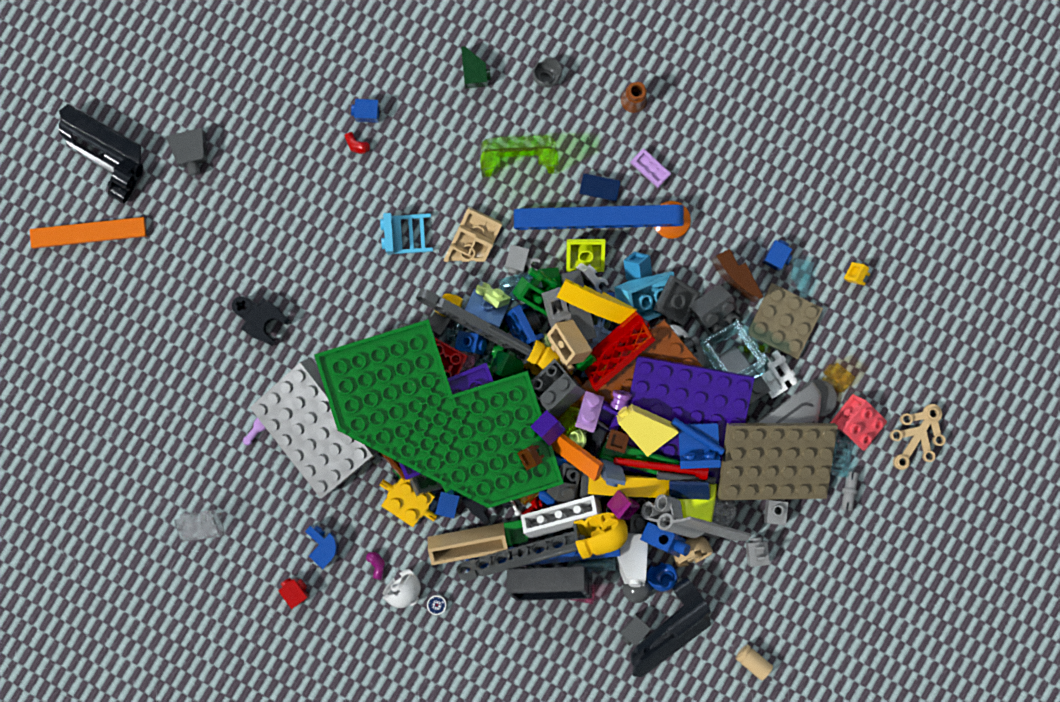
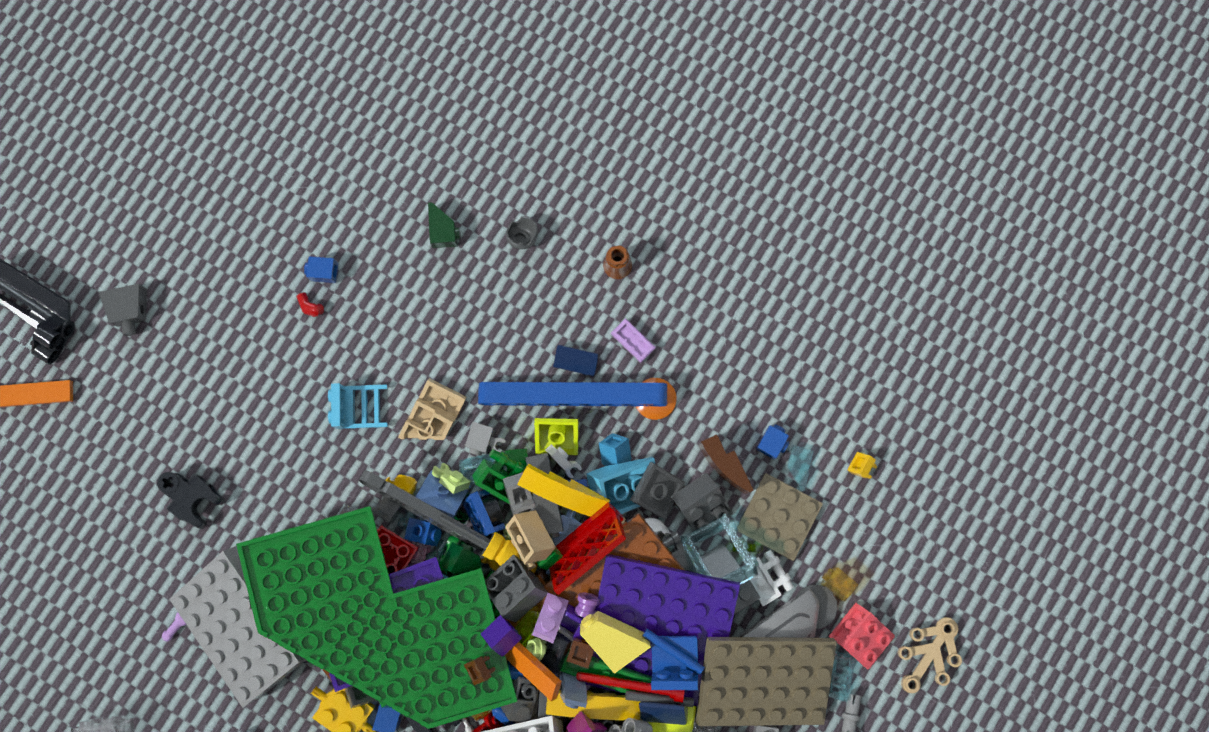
camera: 10 degrees right, 5 degrees down
(496, 148) = (459, 315): clear neon green windscreen -> none

